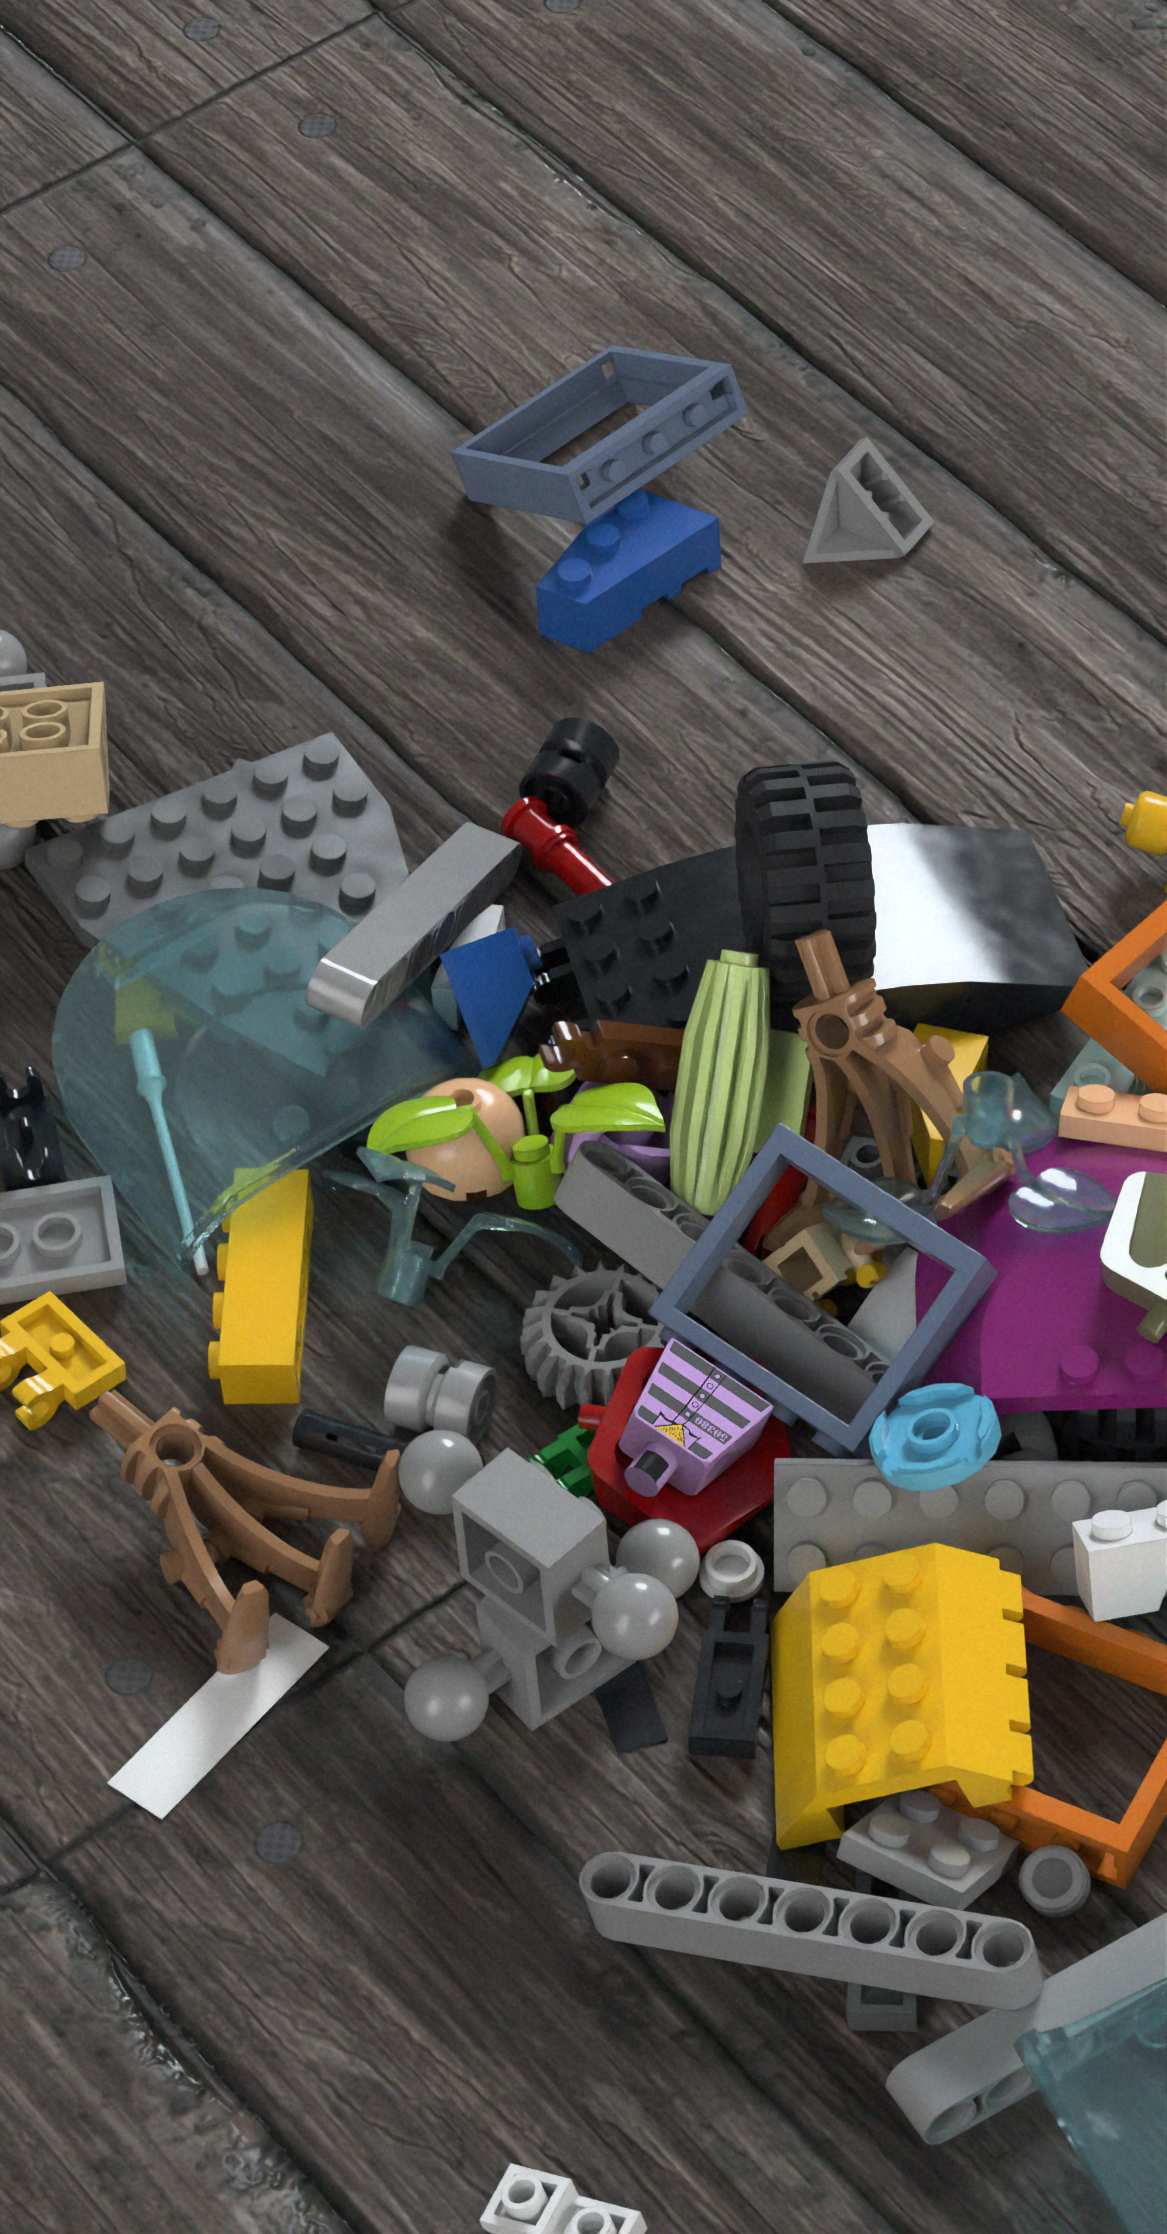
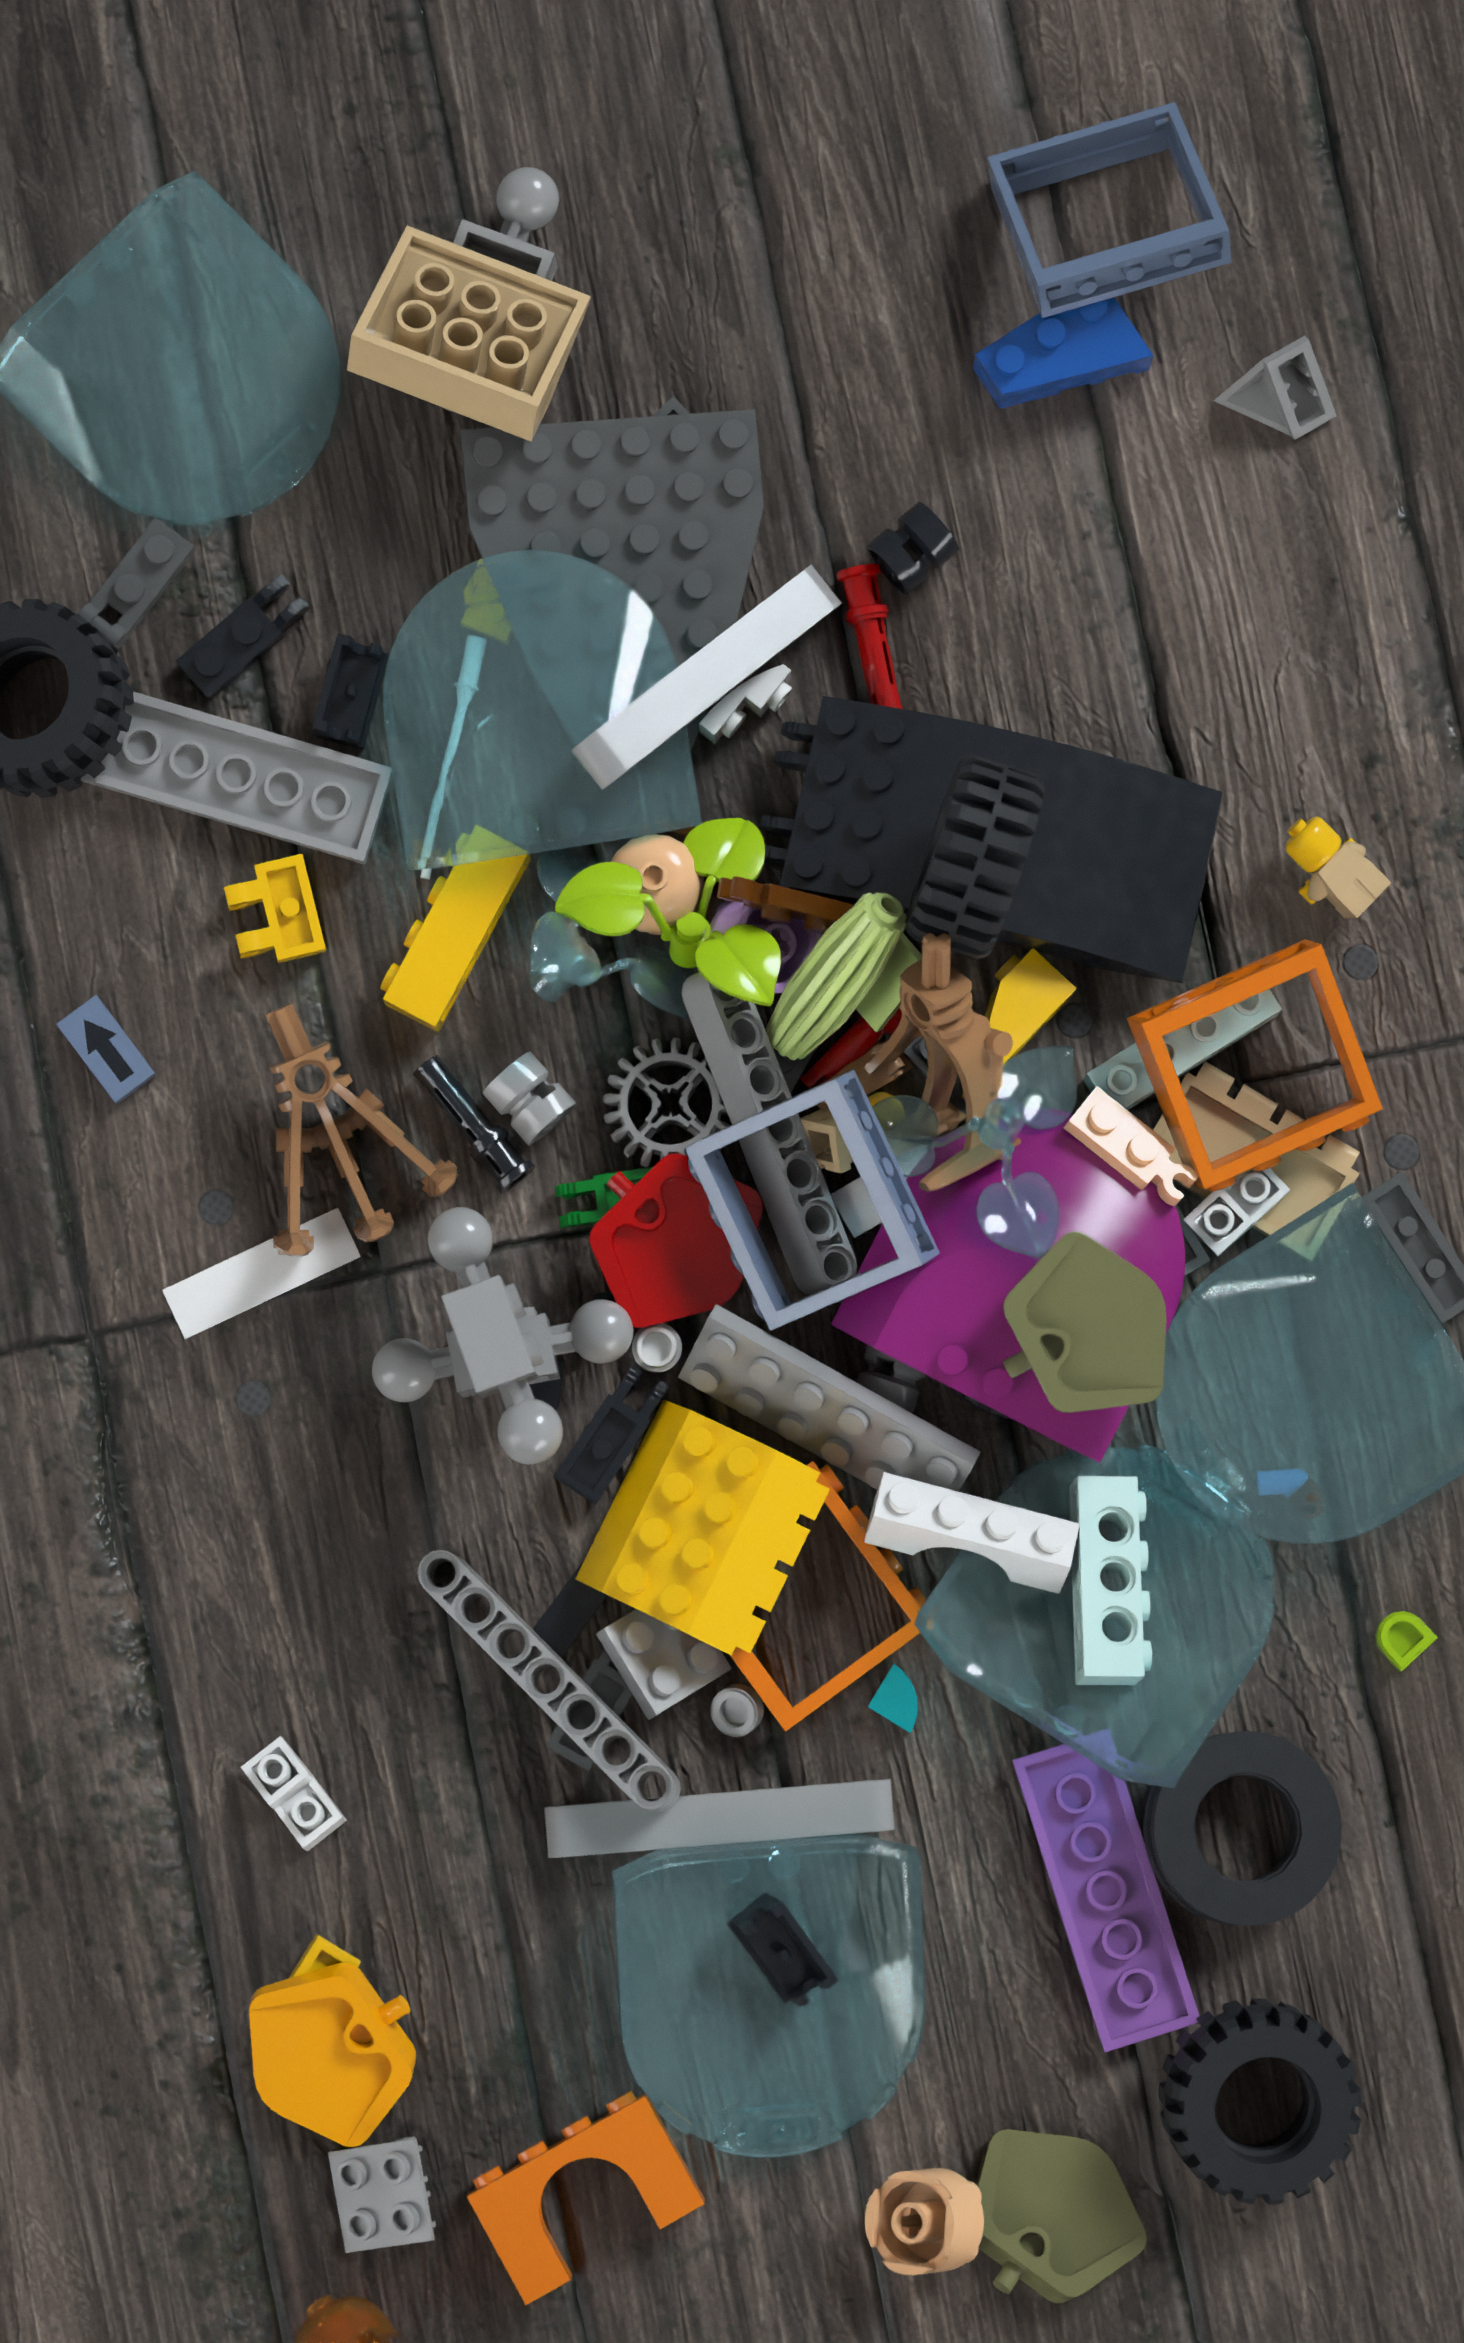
camera: 25 degrees right, 35 degrees up
(493, 987) = (732, 762): blue slope -> none
(689, 1424) = (669, 1244): lavender torso -> none
(935, 1437) = (816, 1341): medium azure plate -> none

